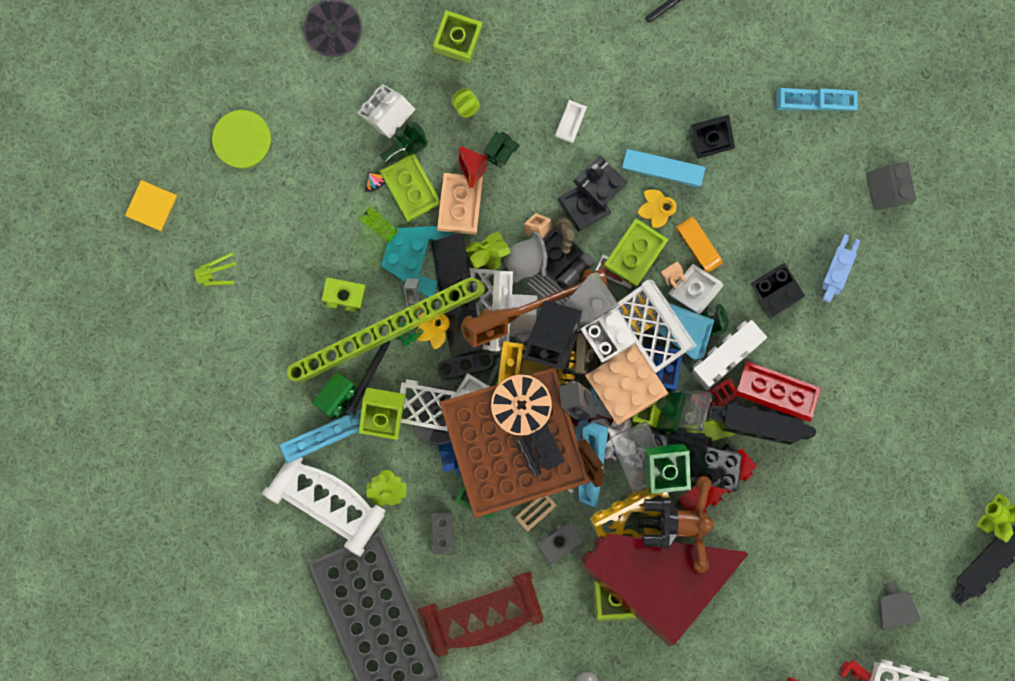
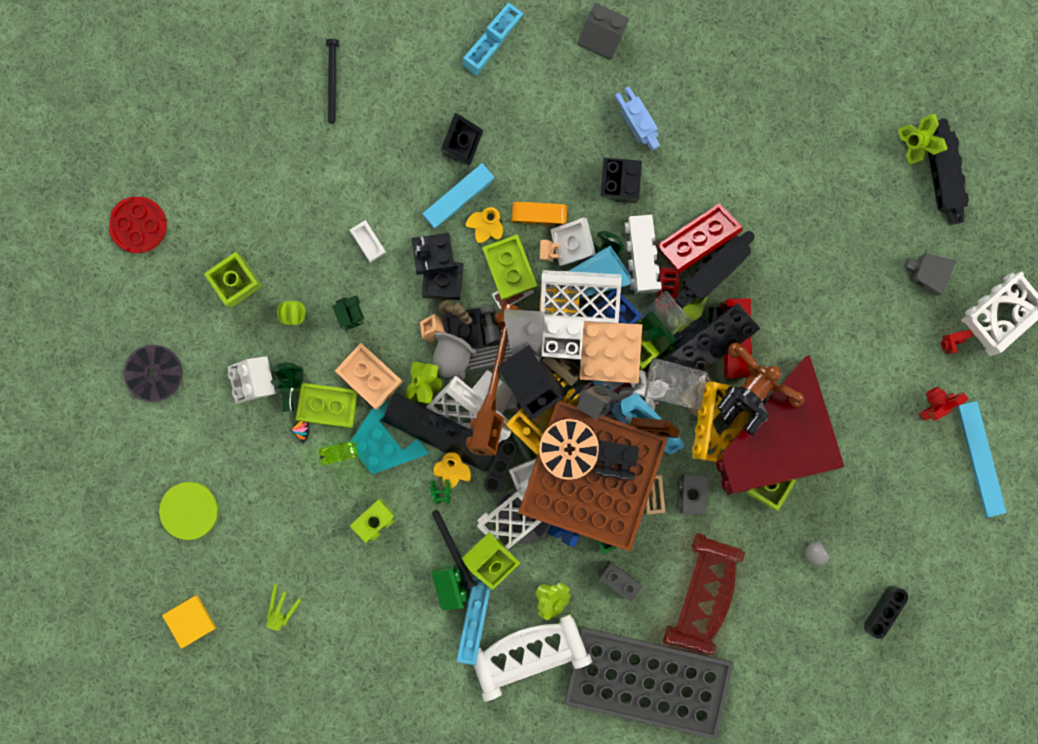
camera: 60 degrees left, 5 degrees up
(375, 330) = (431, 503): lime beam -> none
(411, 291) = (411, 466): light grey piece -> none
(472, 165) = (345, 344): red slope -> none
(667, 468) = (704, 370): green brick -> none

